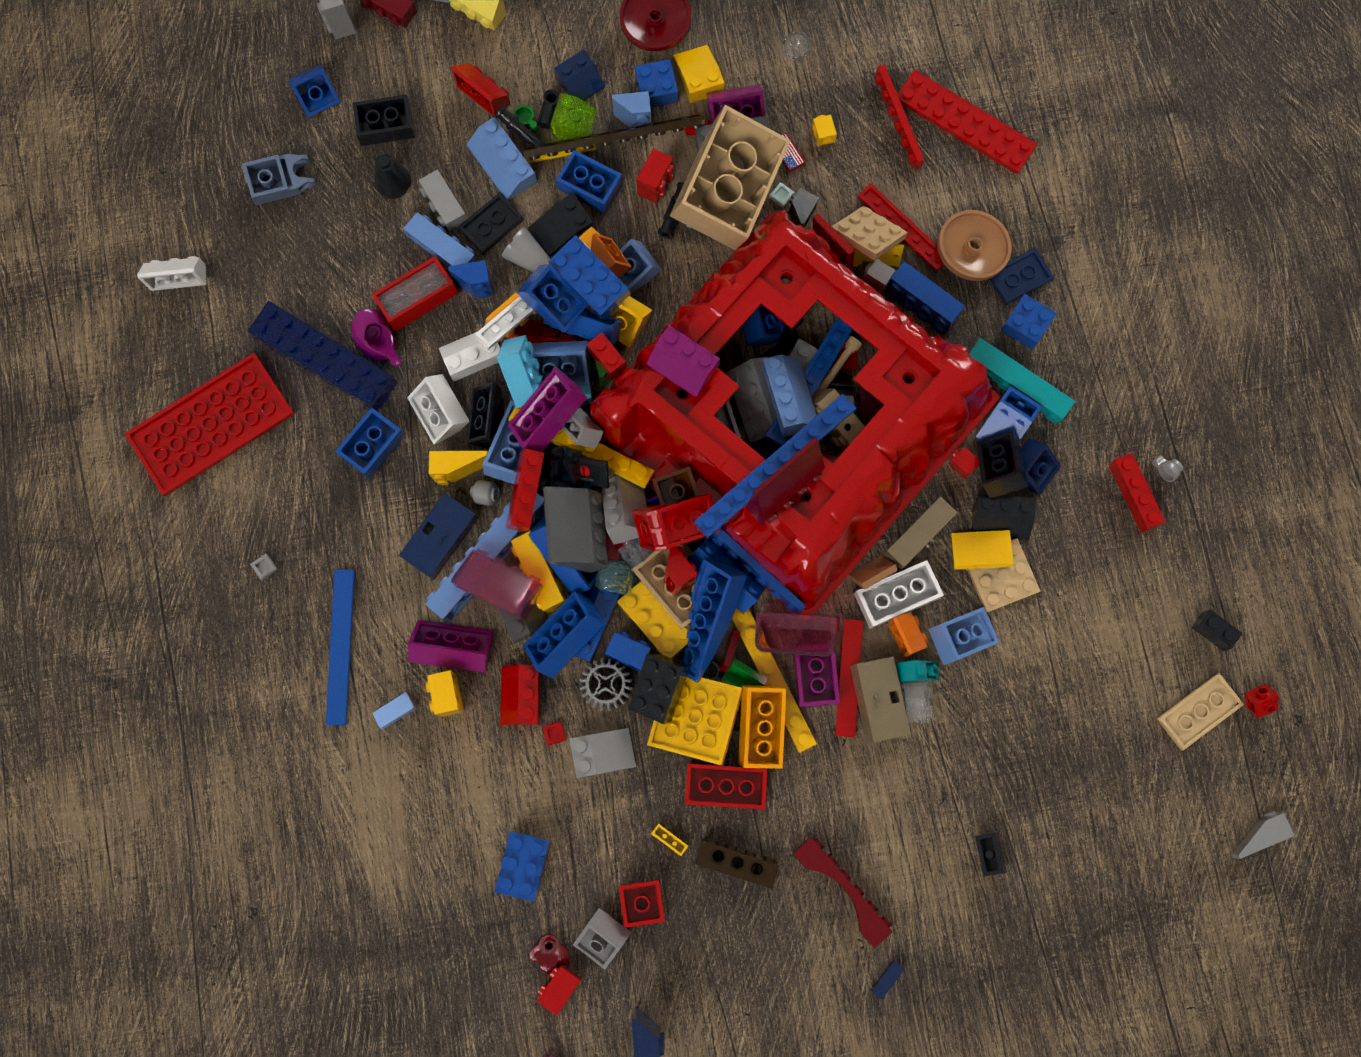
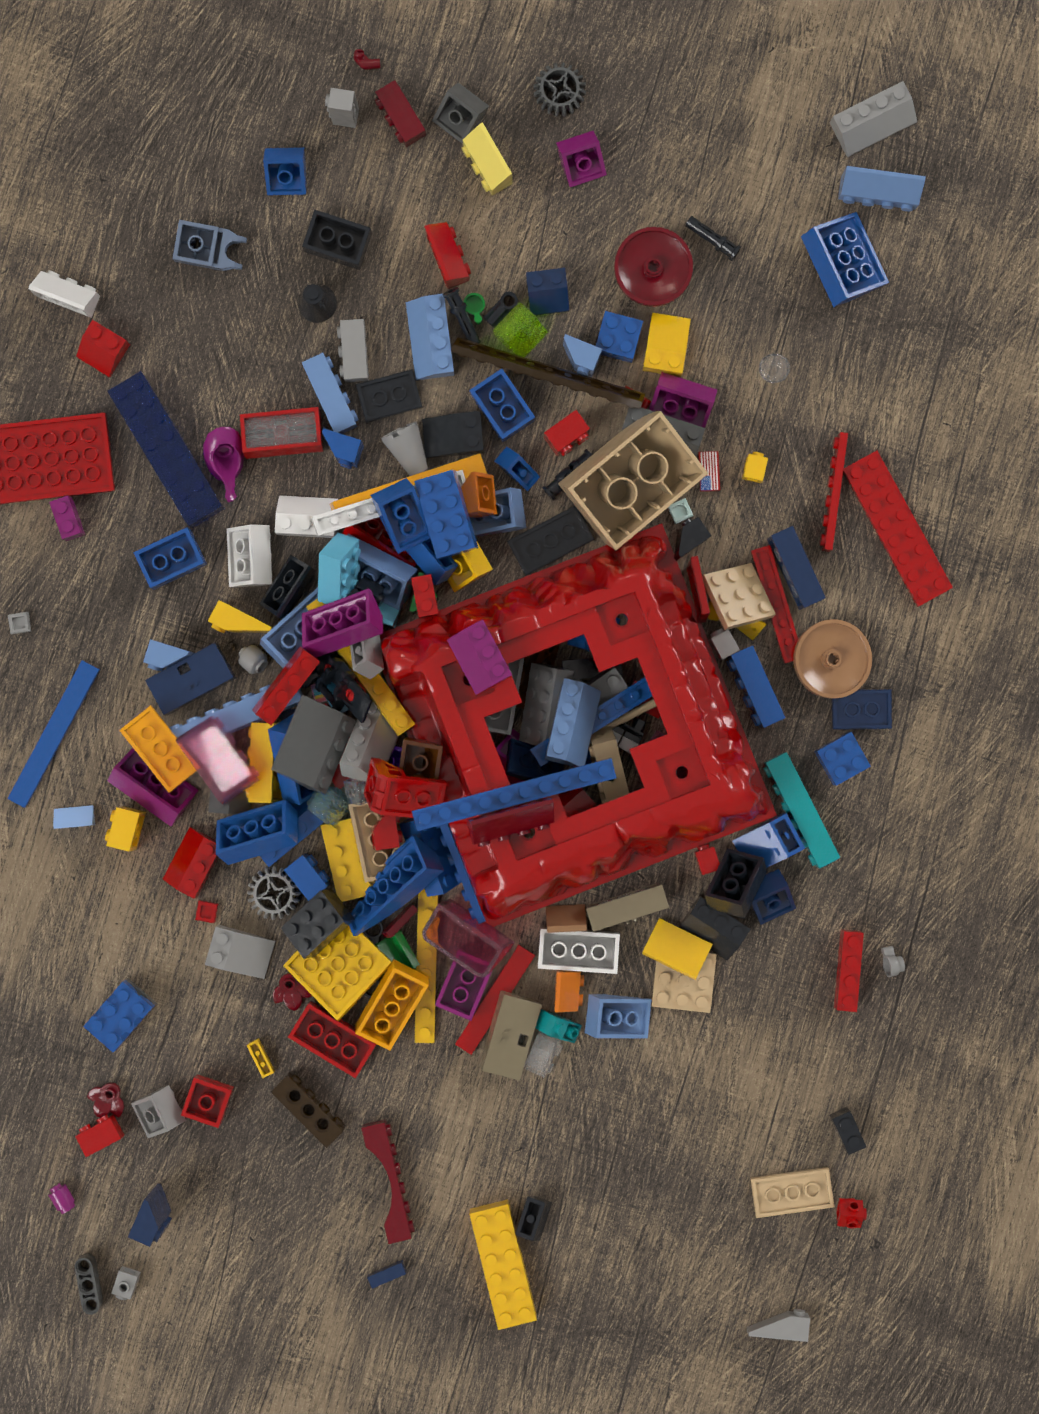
camera: 30 degrees right, 10 degrees up
(226, 302) = (102, 348): none -> red slope
(263, 455) = (67, 518): none -> magenta brick
(404, 524) = (163, 655): none -> medium blue slope
(441, 603) = (158, 748): none -> light orange tile
(628, 226) = (517, 468): none -> blue slope
(668, 767) = (292, 994): none -> dark red plate
(687, 270) = (550, 540): none -> black tile
(903, 188) = (796, 568): none -> dark blue brick
(987, 912) = (503, 1264): none -> yellow brick

